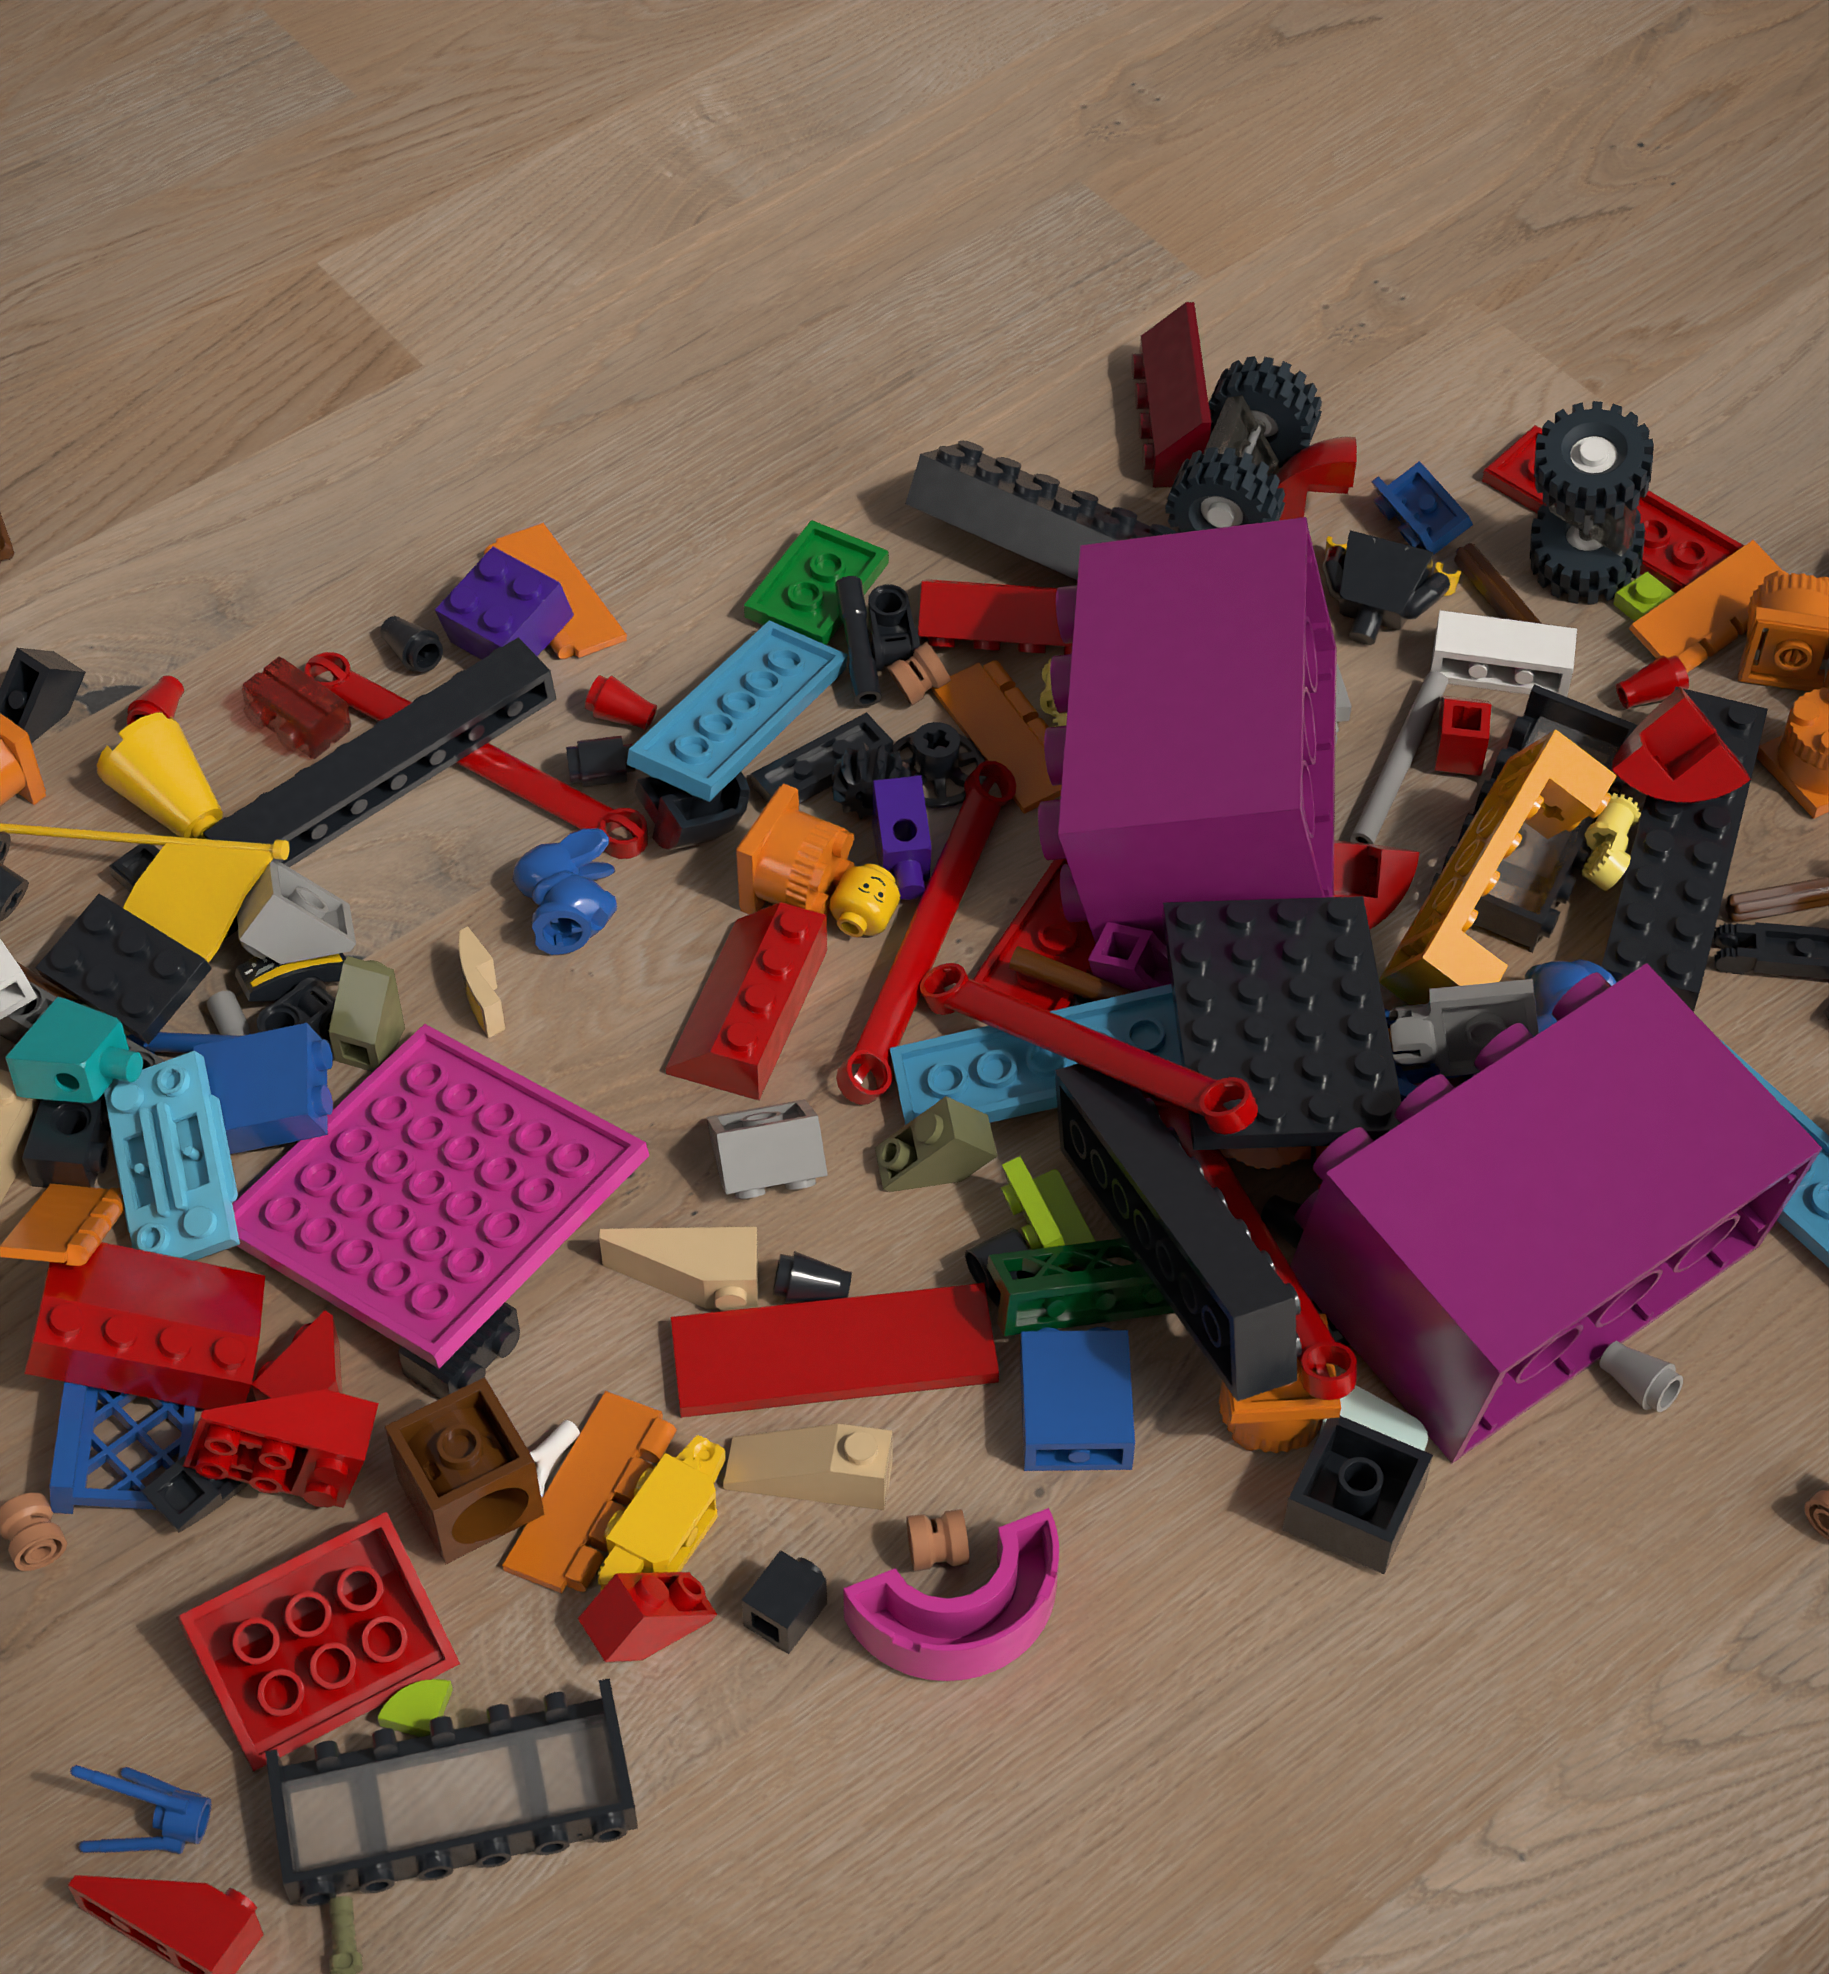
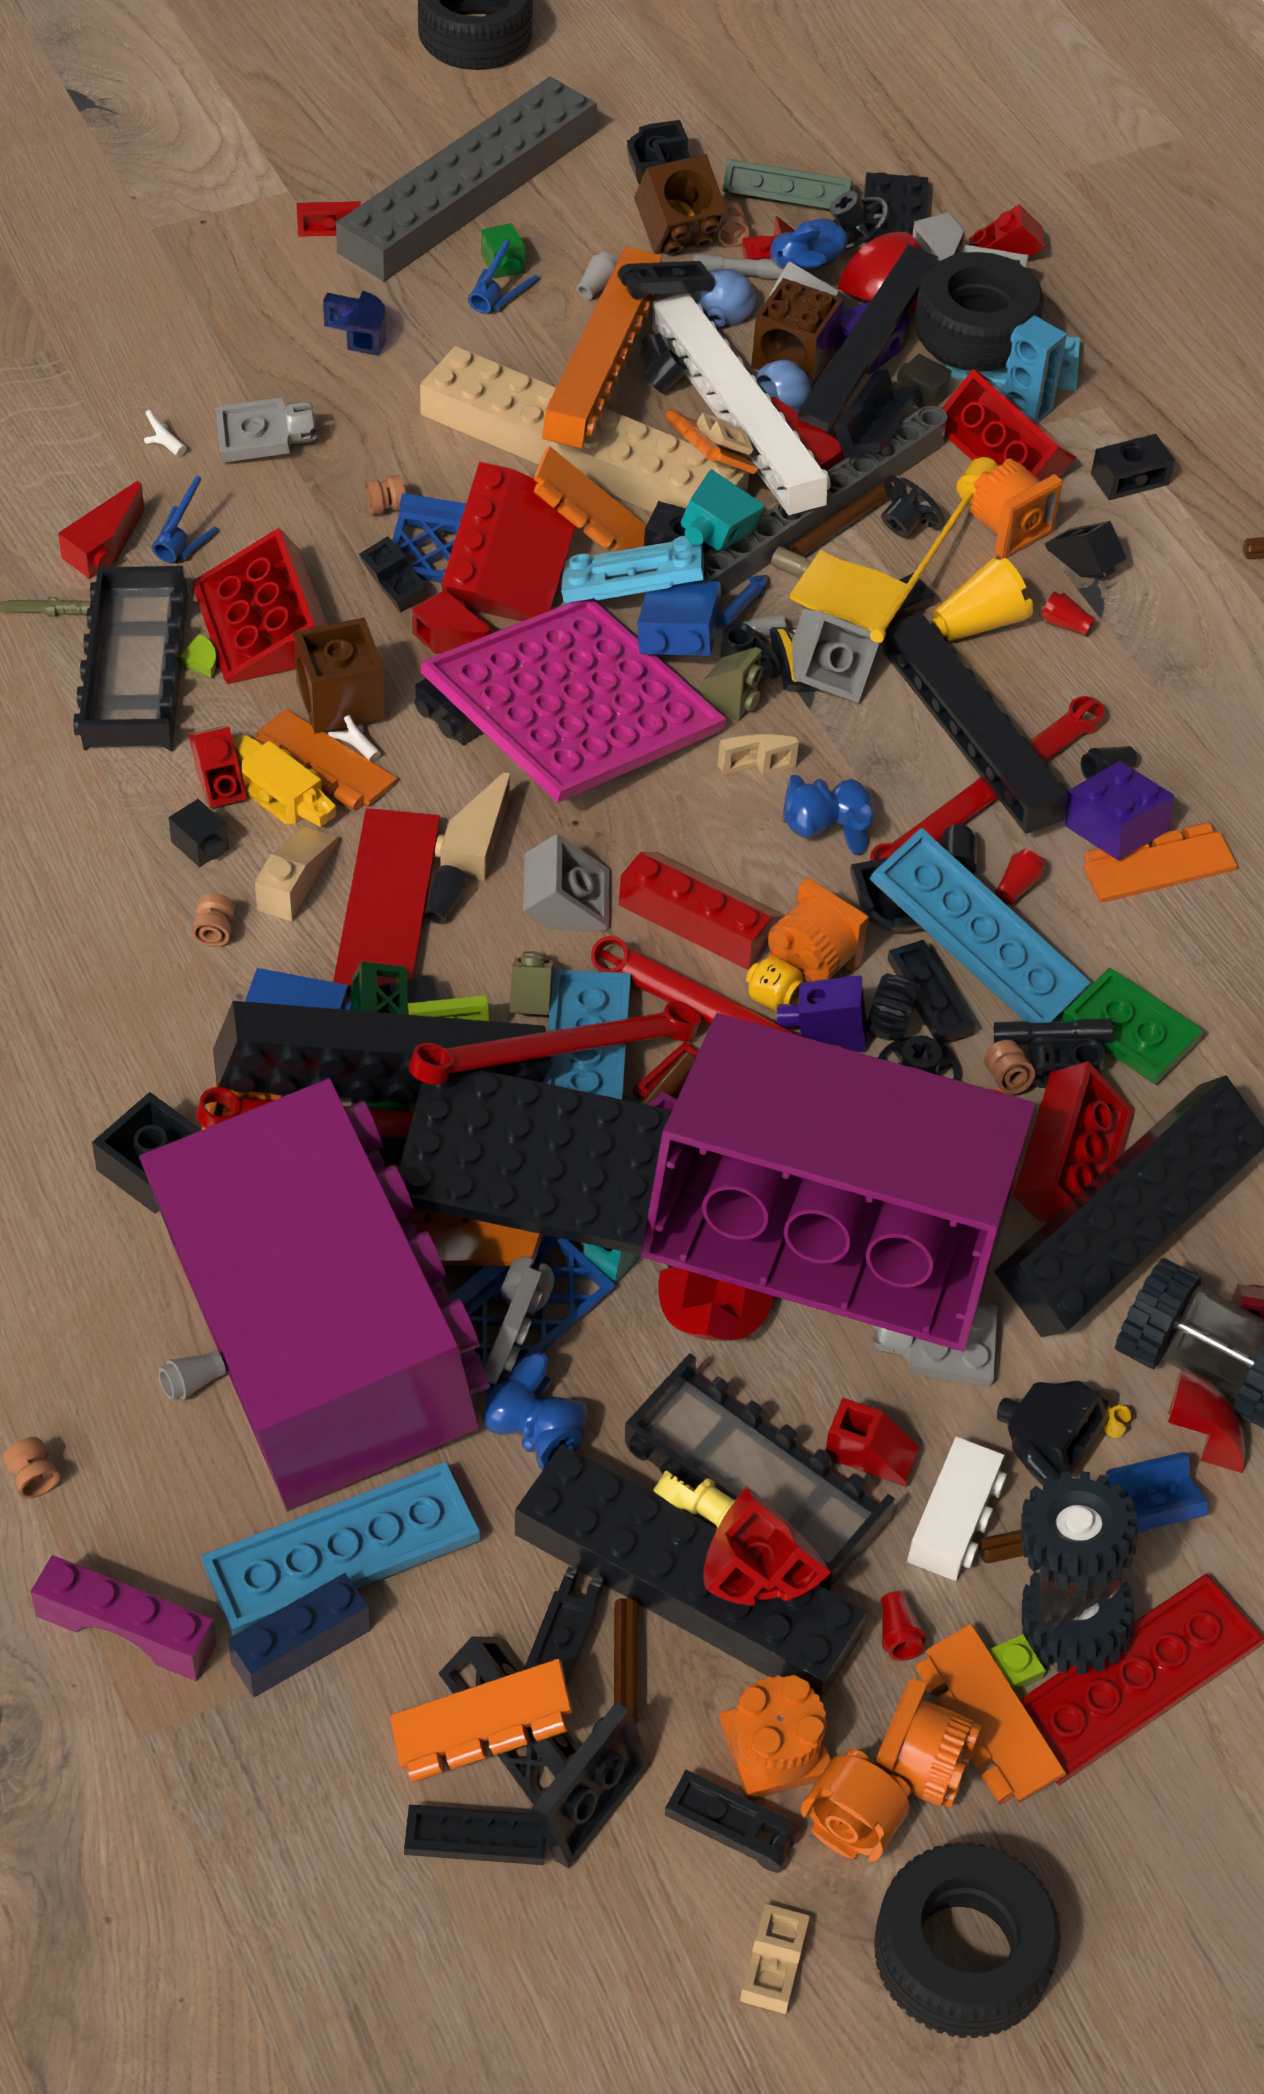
camera: 100 degrees right, 0 degrees up
(124, 968) = (806, 561): black plate -> none
(287, 1444) = (384, 594): red slope -> none
(295, 708) = (1048, 686): clear red brick -> none
(969, 1632) = (141, 940): dark pink brick -> none
(1400, 759) = (838, 1388): light grey piece -> none
(1545, 786) = (735, 1432): light orange plate -> none

